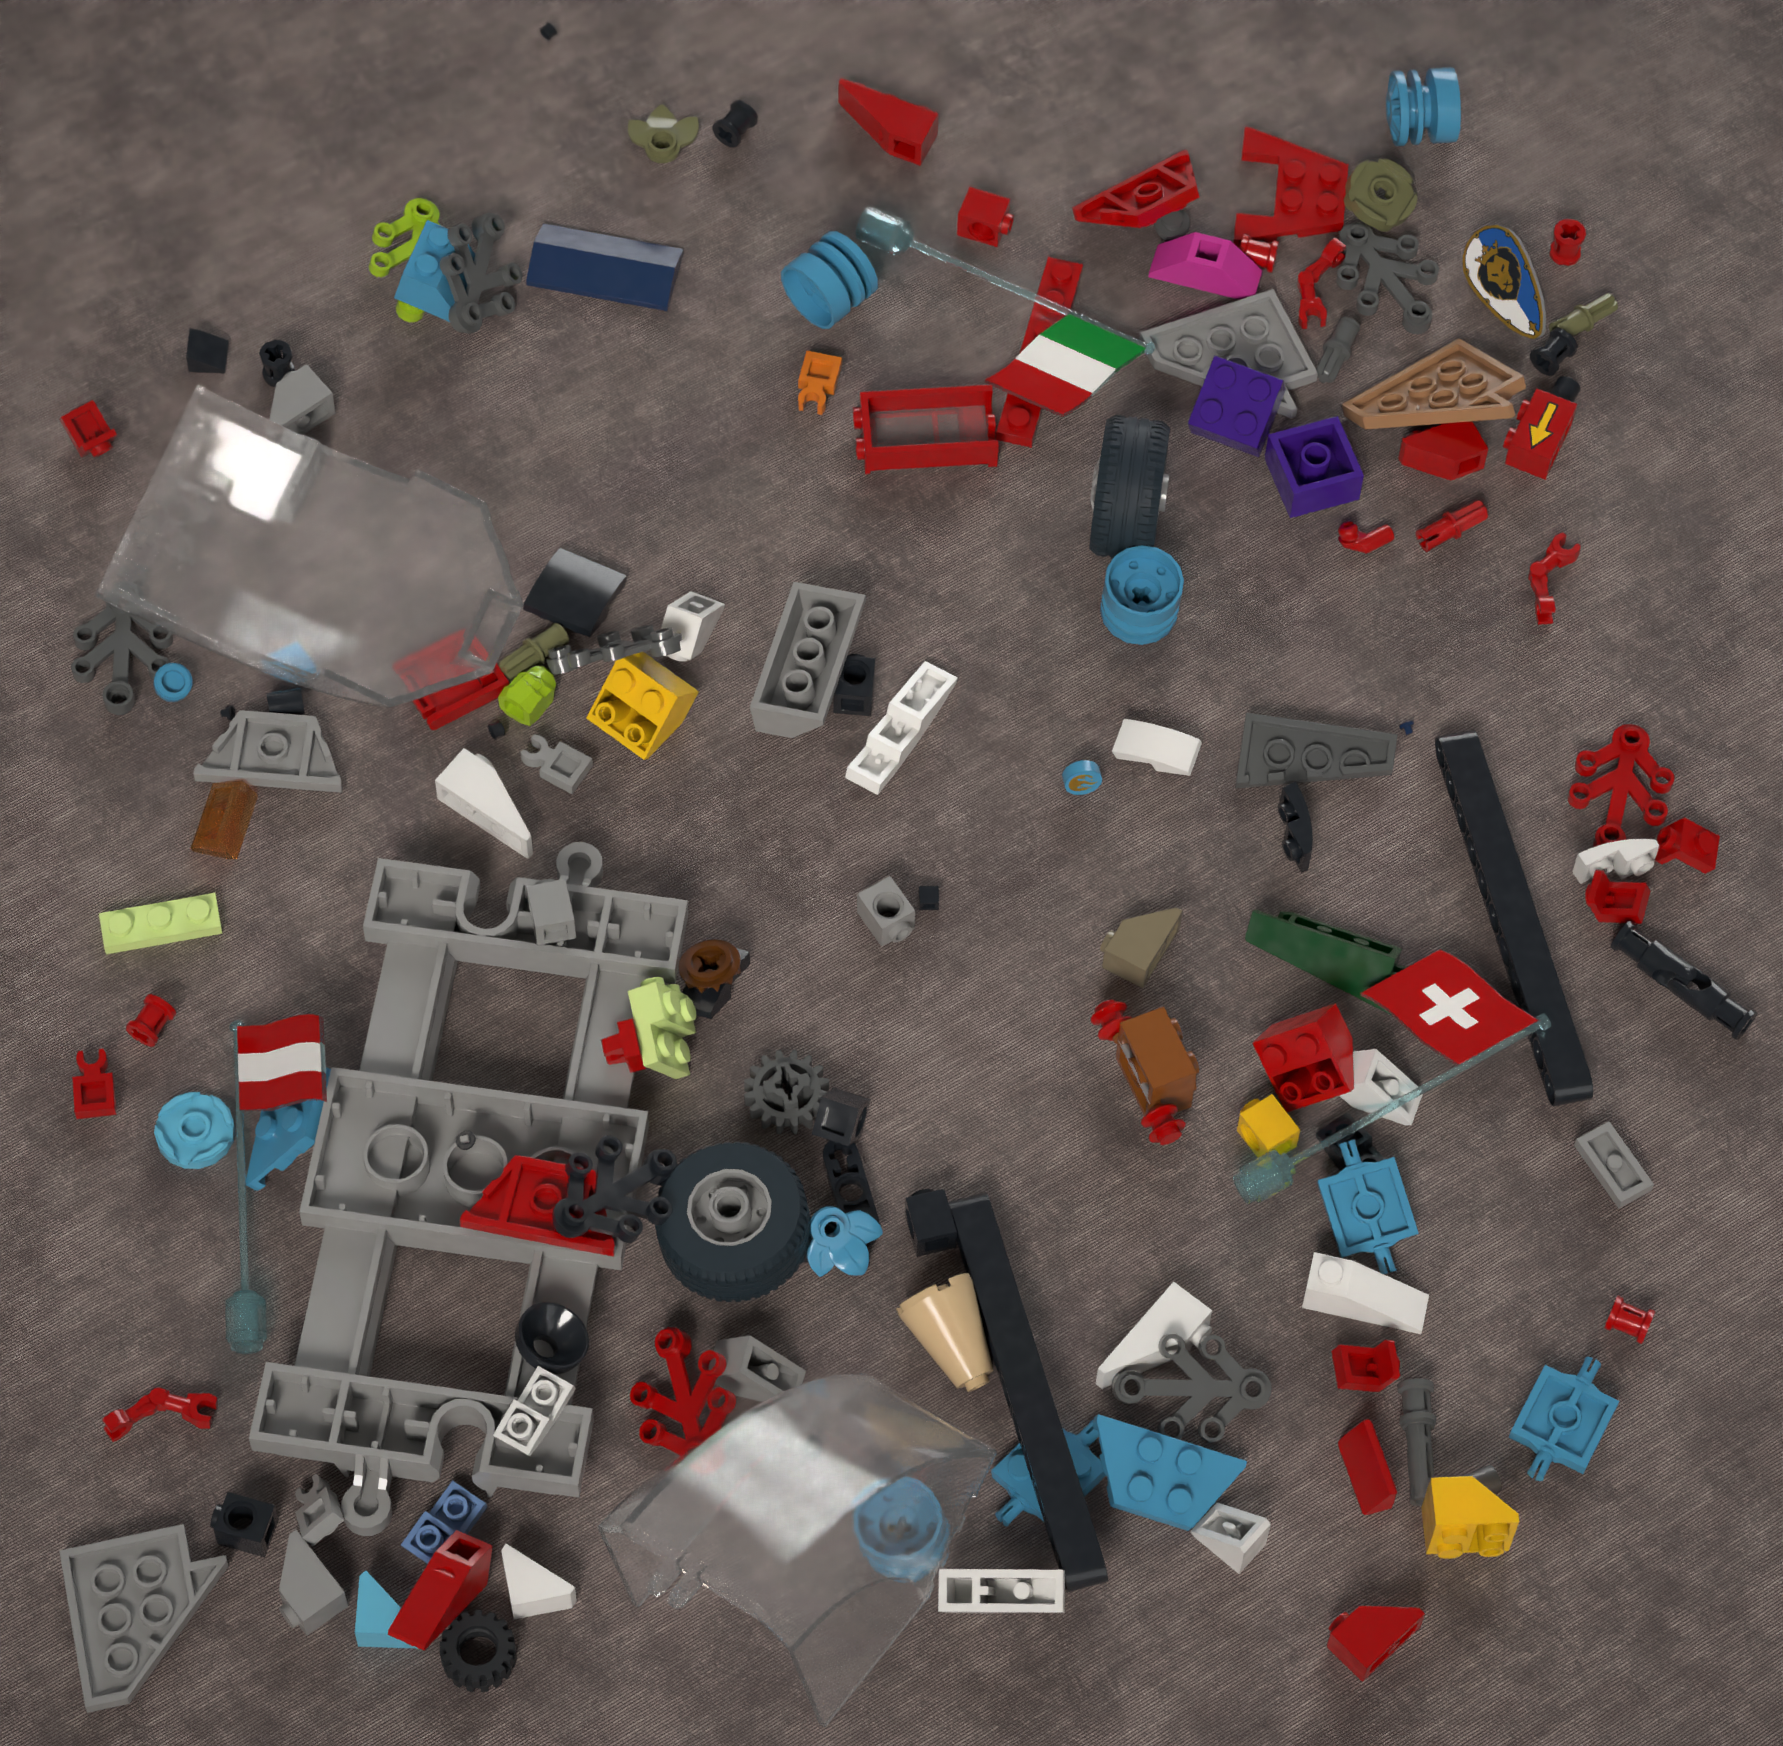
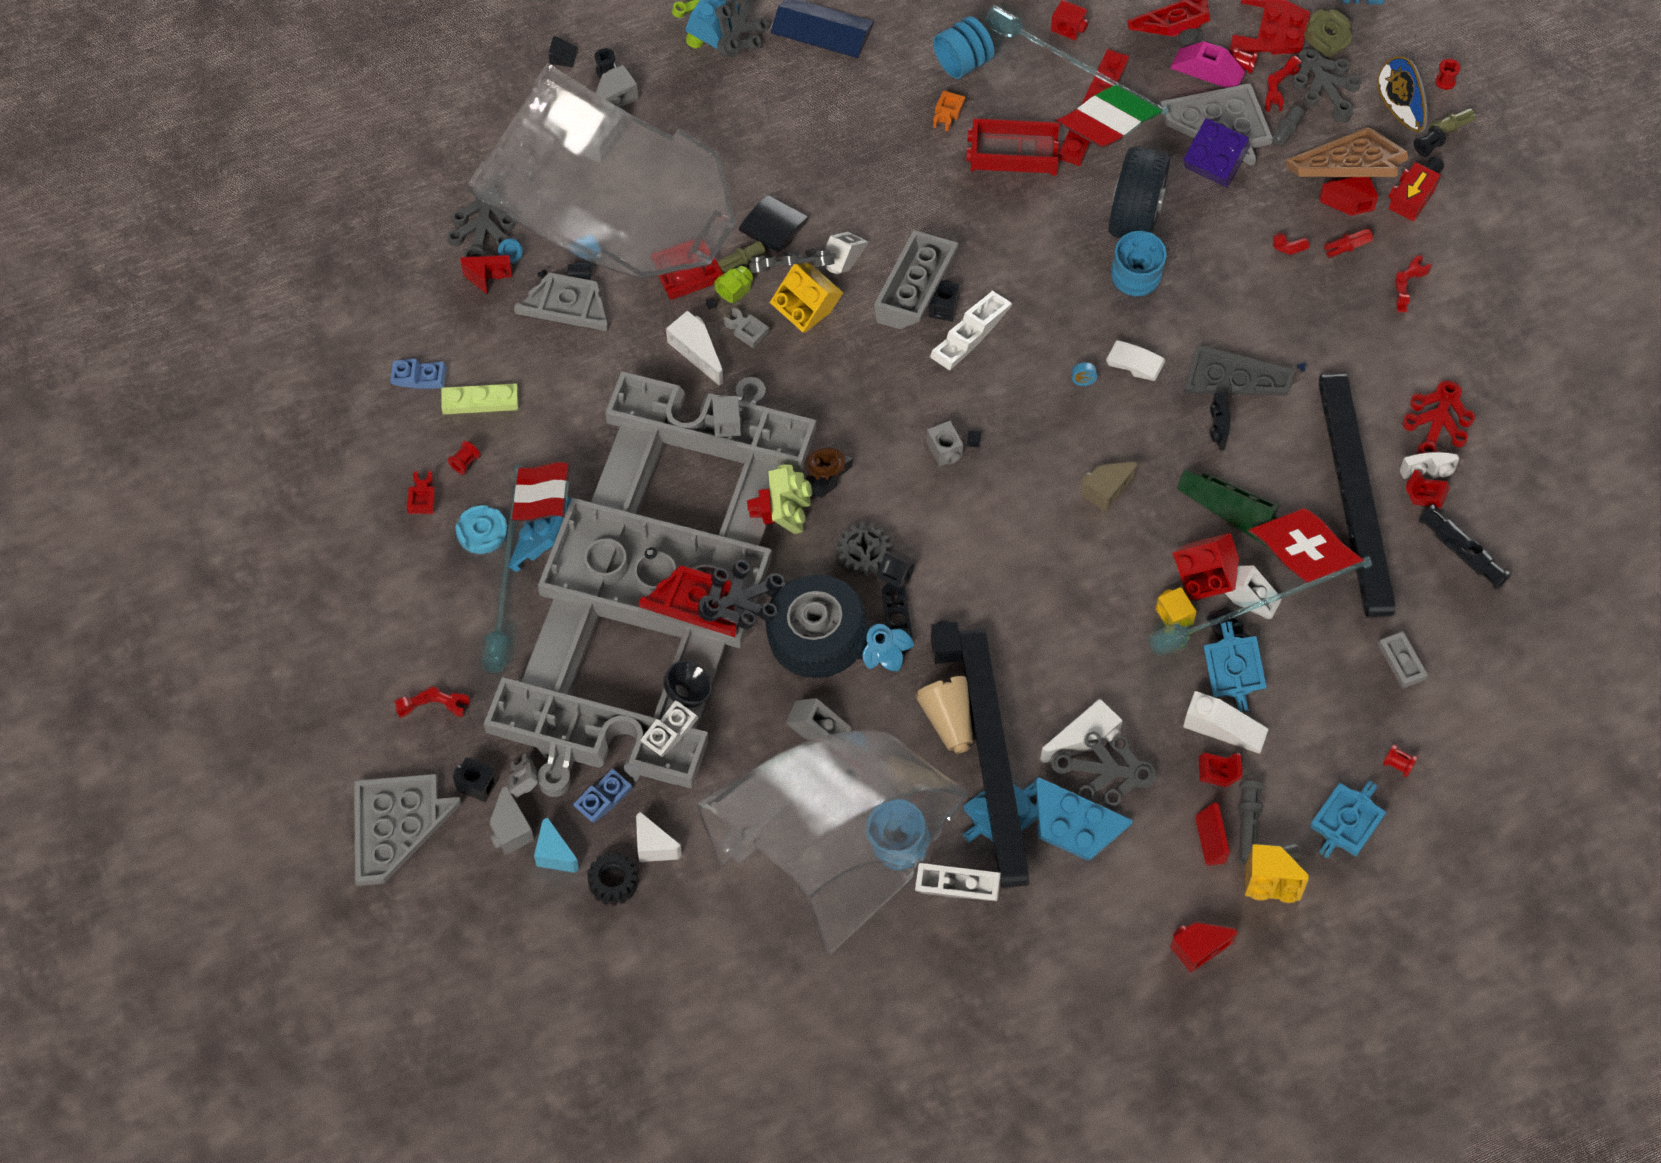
camera: 10 degrees right, 0 degrees up
(54, 897) = (415, 375): none -> medium blue slope
(88, 430) = (481, 91): red bracket -> none
(131, 715) = (484, 267): none -> red slope
(225, 820) = (530, 339): clear orange slope -> none
(444, 1590) = (596, 835): red slope -> none
(688, 1402) = (771, 737): red plant -> none
(1153, 1065) = (1105, 559): dark orange brick -> none
(1232, 1534) = (1117, 867): white slope -> none
(1313, 467) = (1262, 196): dark purple brick -> none
(1689, 844) = (1478, 460): red bracket -> none

